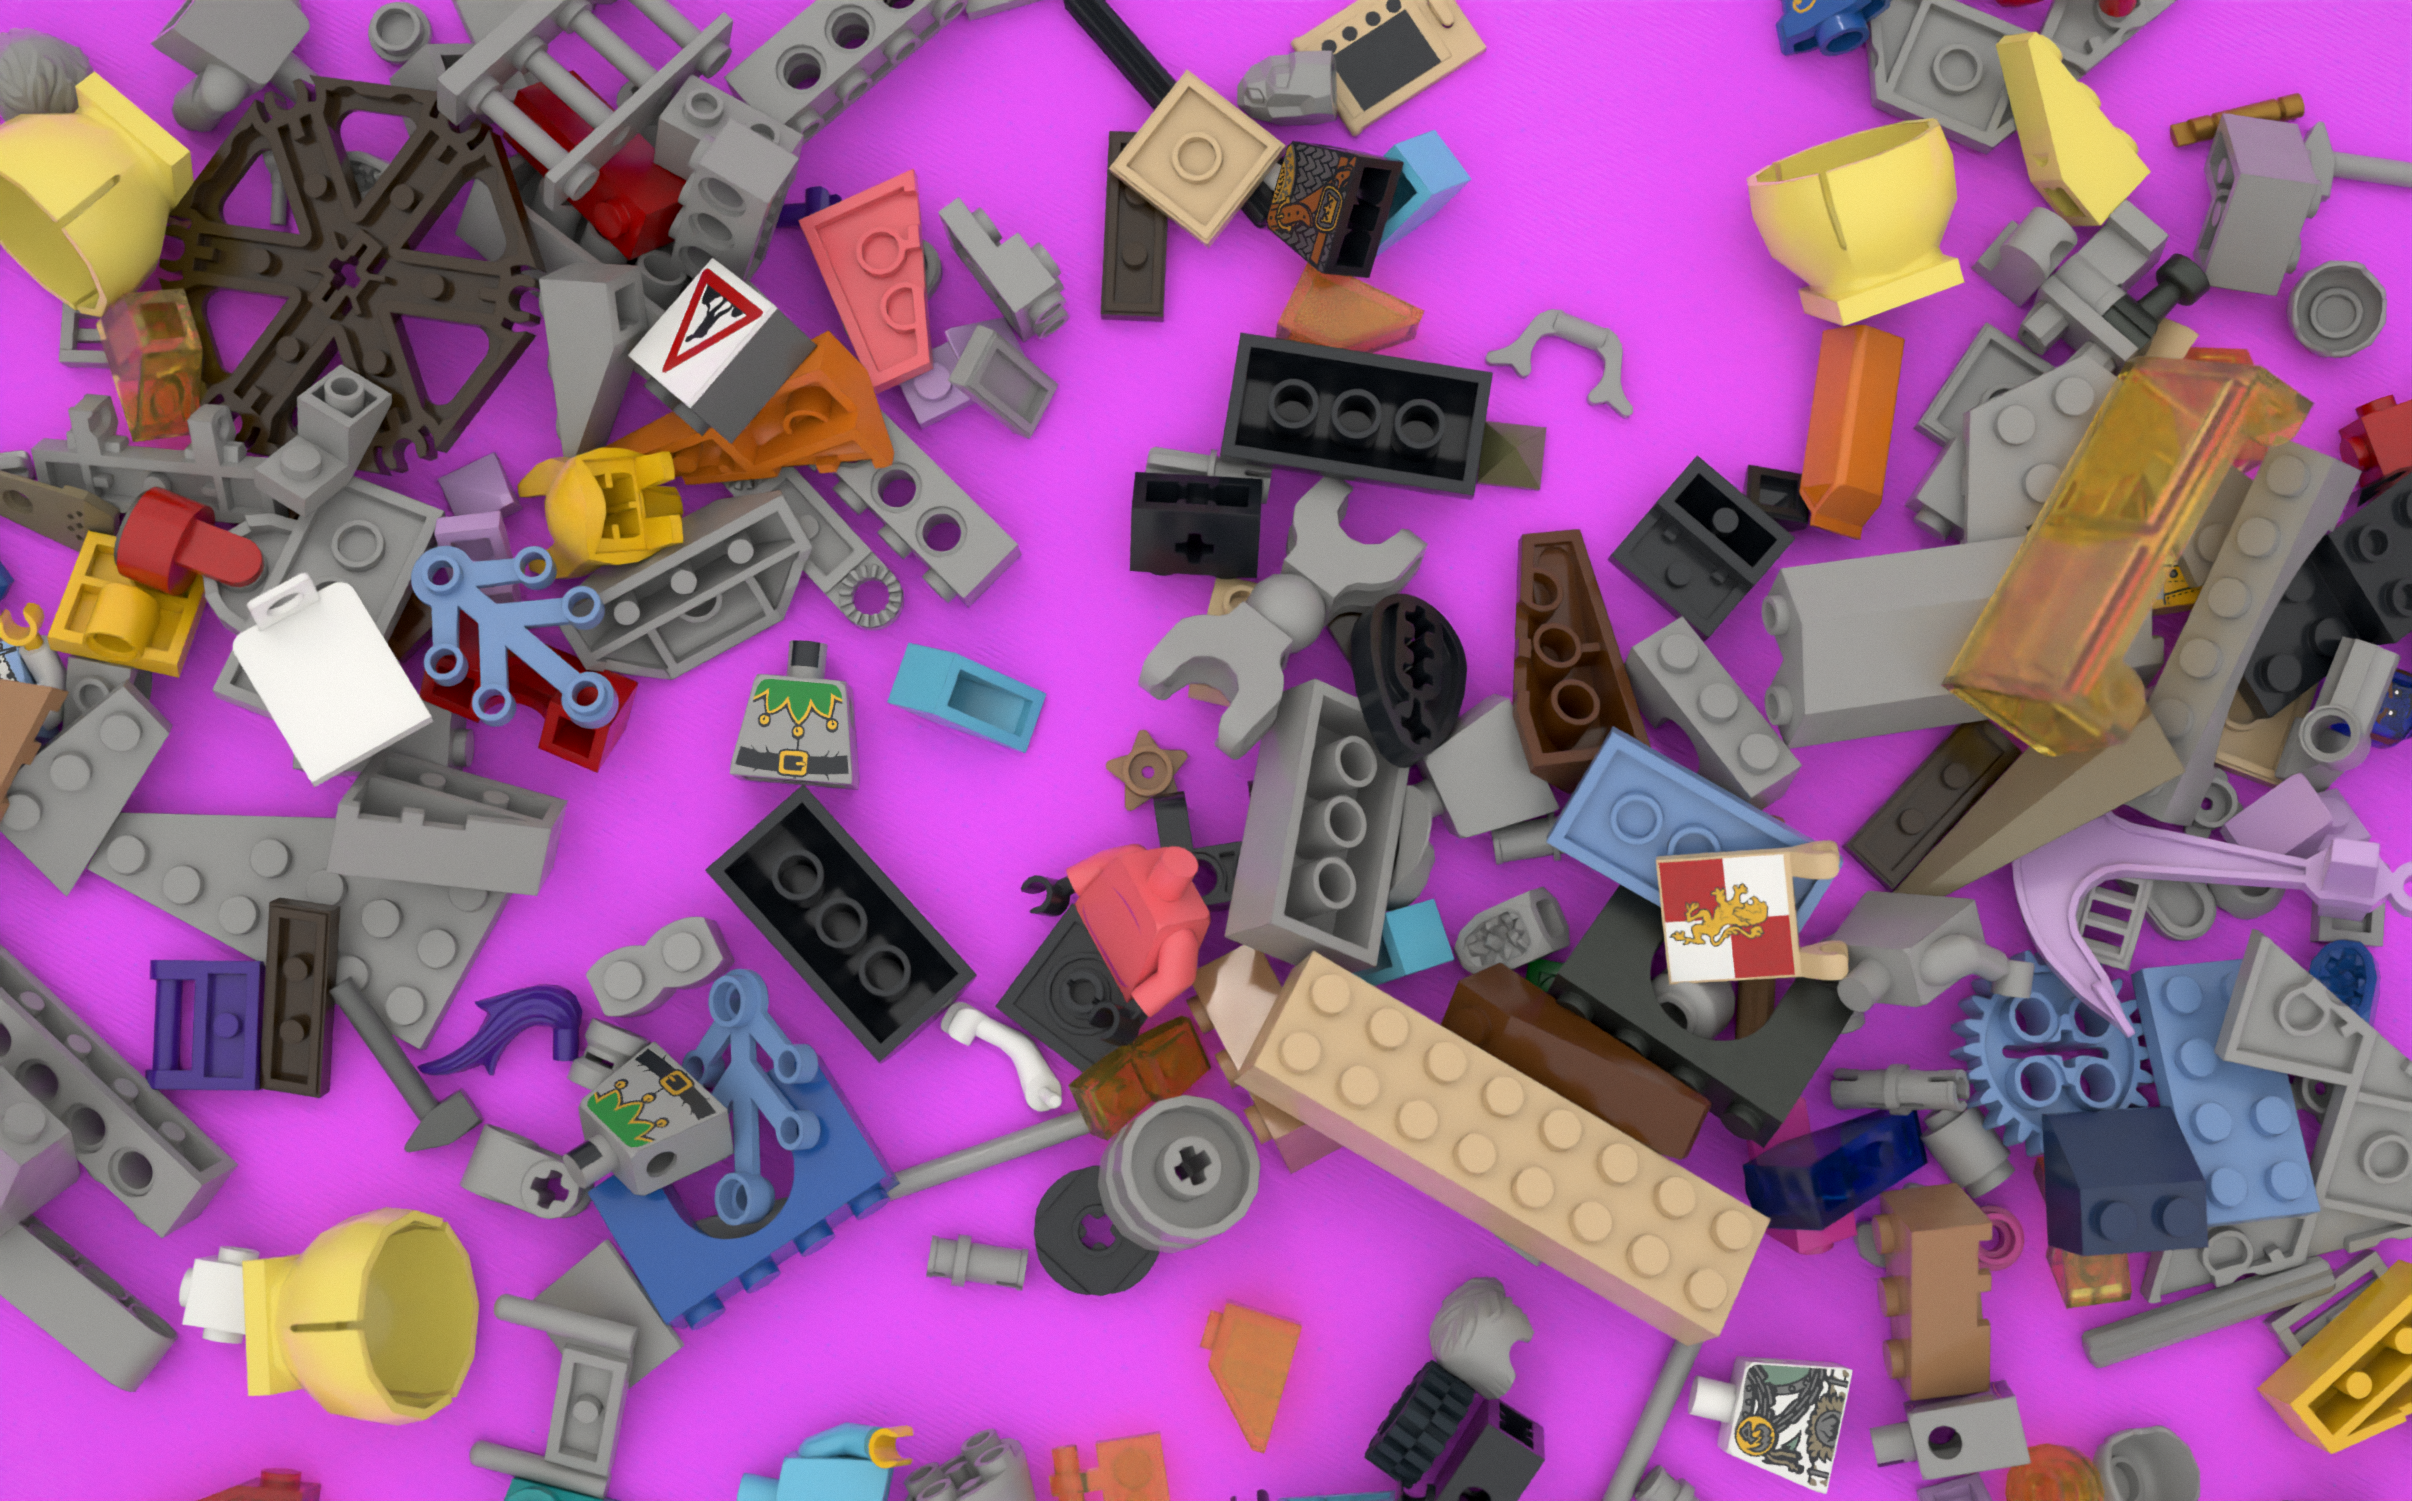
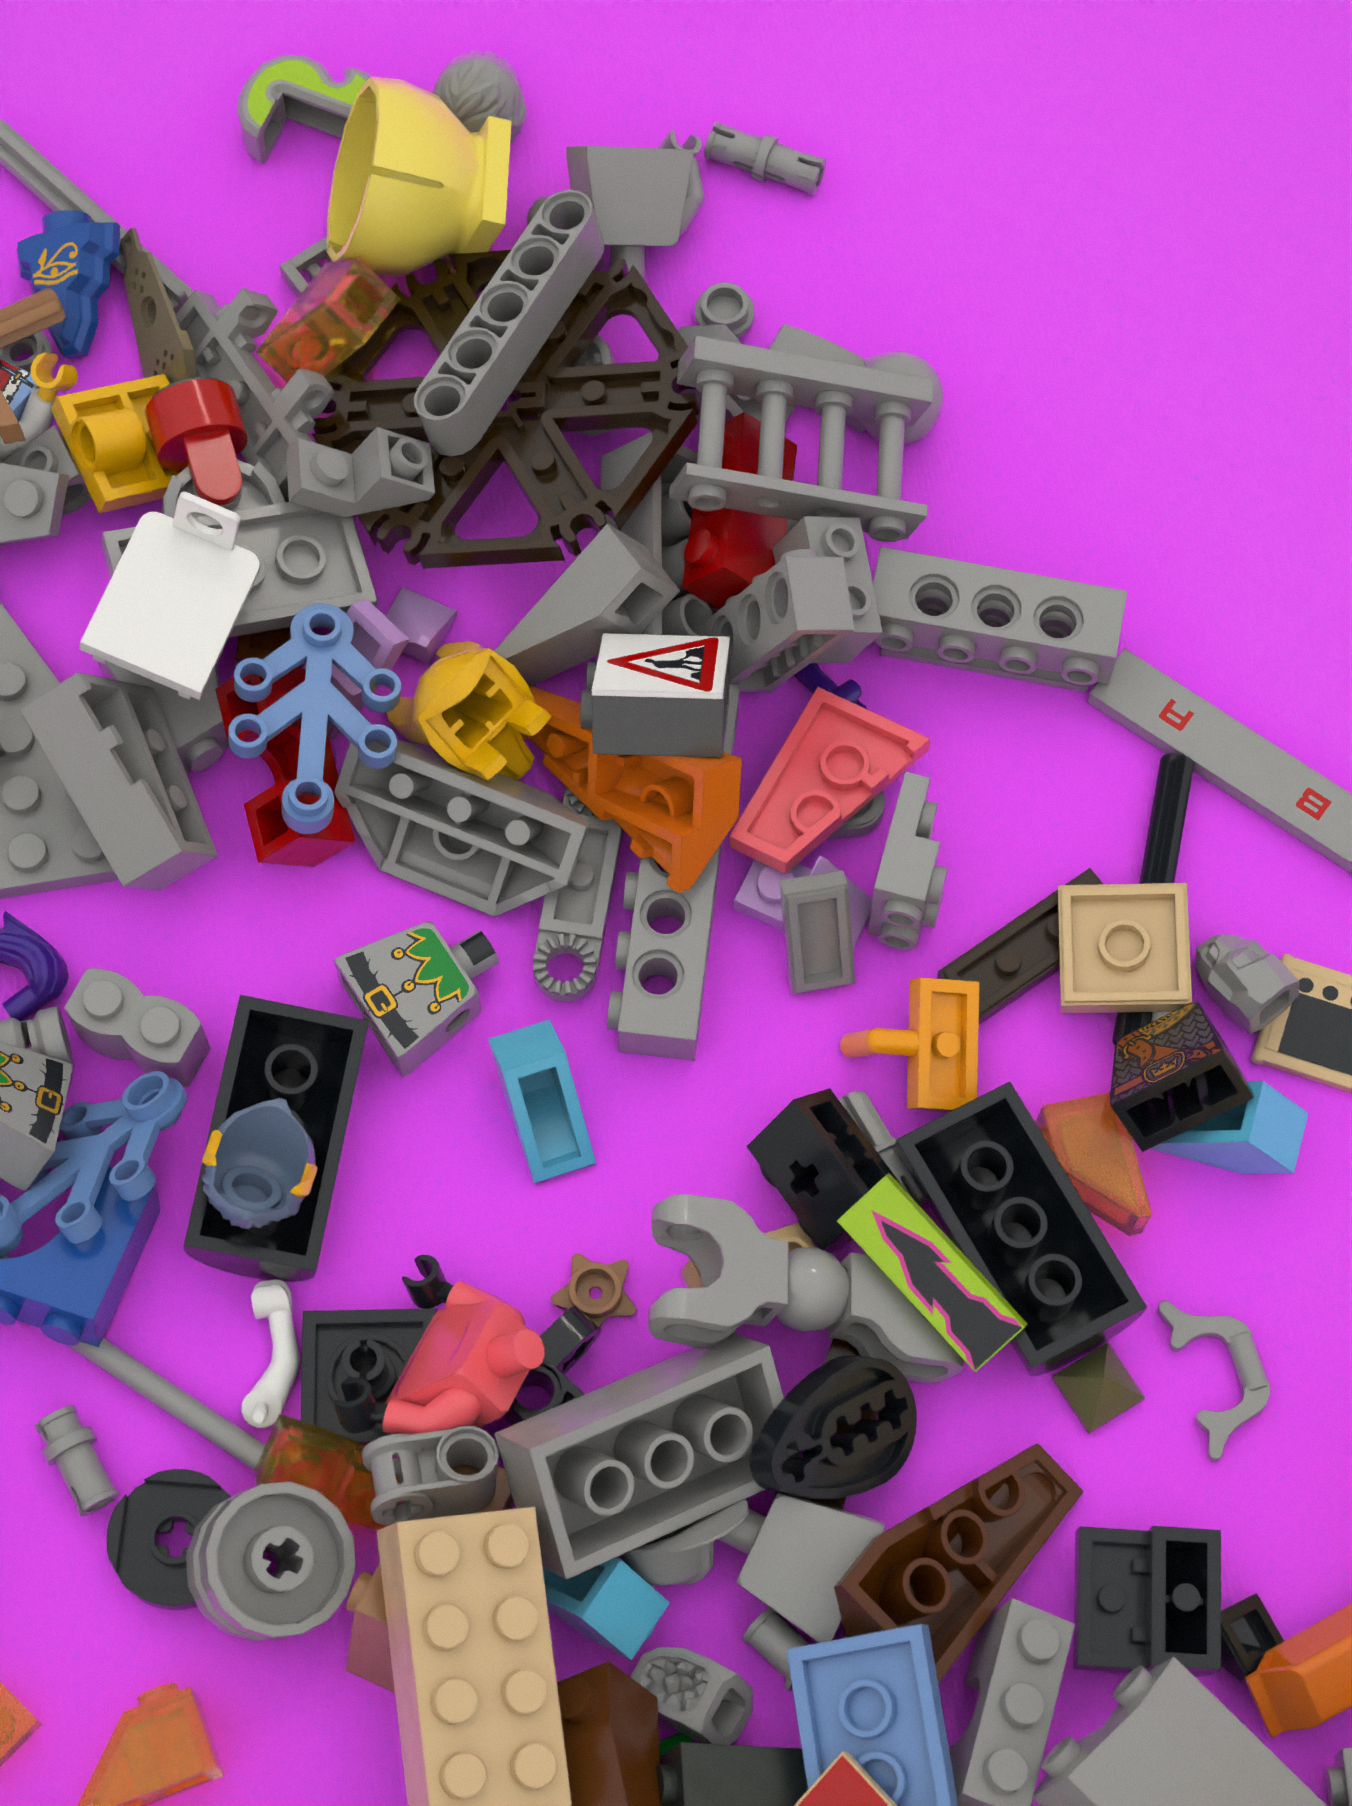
camera: 50 degrees right, 15 degrees down
(263, 197) = (509, 323): none -> light grey beam
(868, 959) = (259, 1165): none -> sand blue hair
(1163, 363) = (938, 1043): none -> light orange plate
(1207, 1019) = (426, 1474): none -> light grey piece
(1347, 511) = (932, 1272): none -> tile

